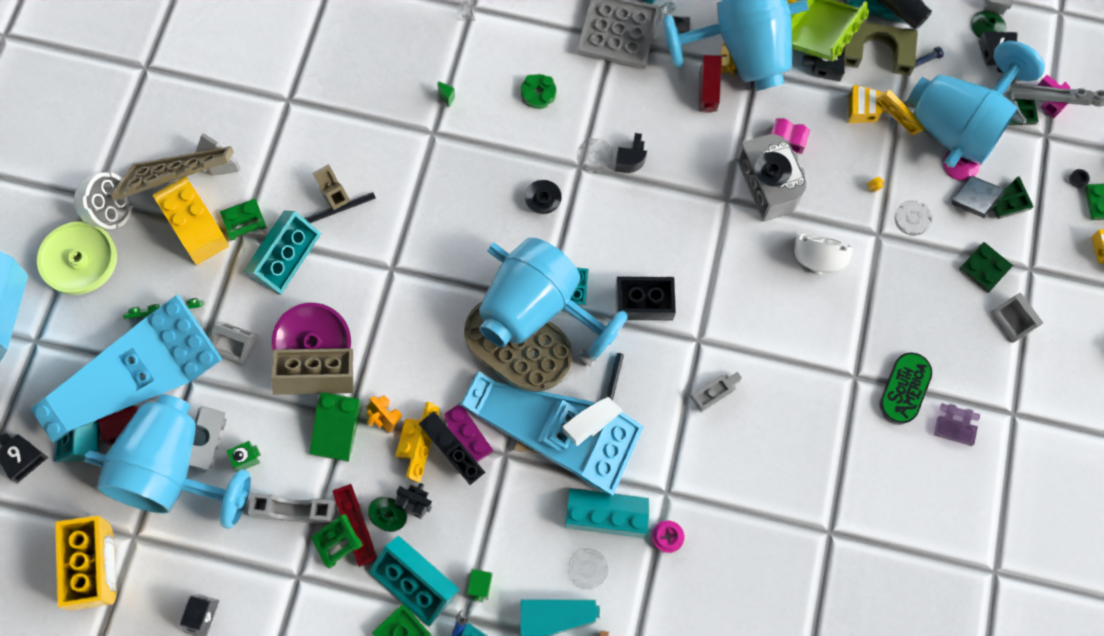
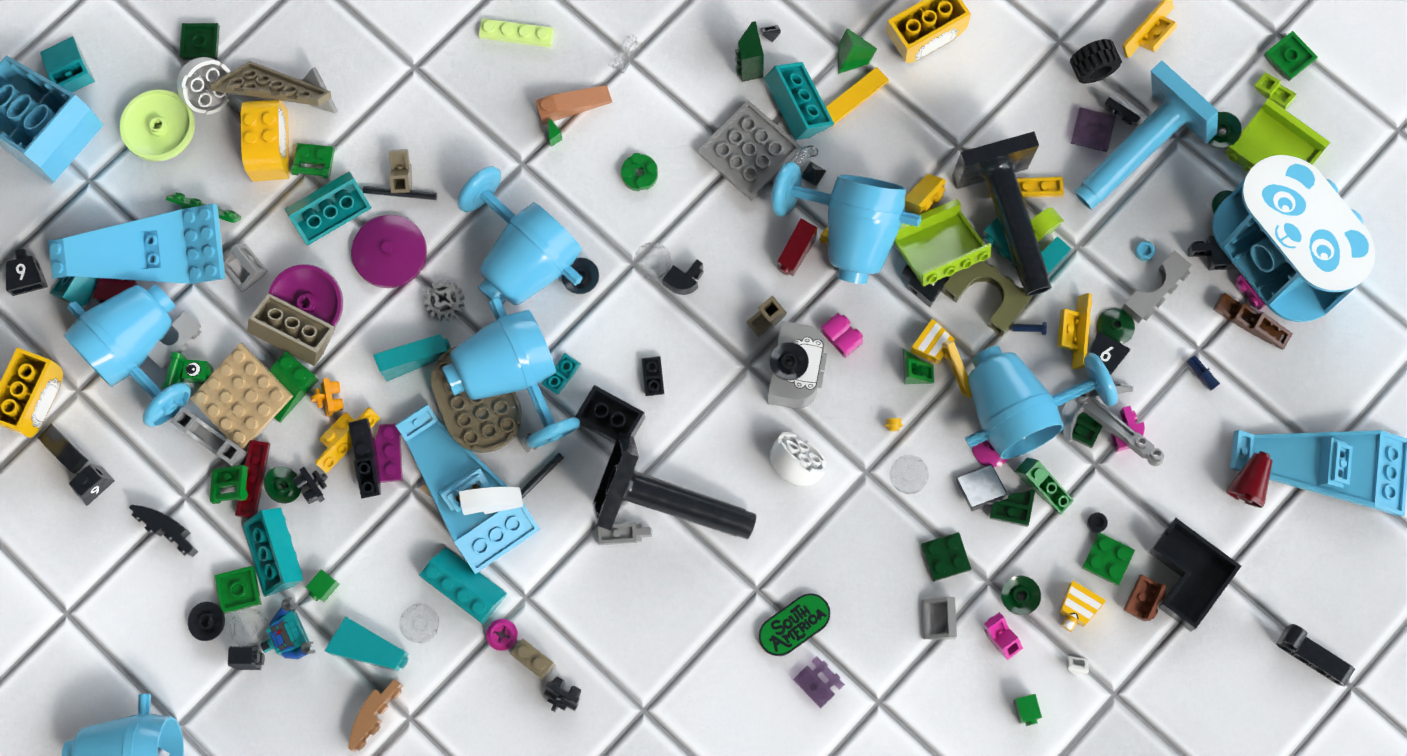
camera: 40 degrees right, 5 degrees up
(73, 168) = (199, 40): none -> dark green plate
(151, 597) = (62, 449): none -> black slope
(224, 465) = (175, 369): none -> green plate
(288, 614) = (161, 525): none -> black slope
(300, 455) = (241, 396): none -> tan plate
(360, 261) = (389, 251): none -> magenta dish
(362, 30) = (516, 33): none -> yellowish green plate
(428, 275) = (440, 307): none -> light grey gear
(437, 338) = (411, 356): none -> teal slope
(445, 63) = (572, 103): none -> nougat slope
(492, 192) = (529, 250): none -> medium azure piece
(655, 248) = (653, 376): none -> black slope
(700, 339) = (623, 483): none -> black piece
(710, 541) = (533, 659): none -> dark tan brick
(721, 149) = (770, 314): none -> dark tan brick
(755, 561) = (560, 697): none -> black hips
(863, 133) = (916, 370): none -> green slope
(965, 41) = (1074, 330): none -> yellow bracket
(1014, 164) = (1046, 486): none -> green slope
(1070, 259) = (1025, 586): none -> dark green dish
(1075, 305) = (1002, 636): none -> dark pink brick
(1077, 25) = (1203, 373): none -> dark blue axle

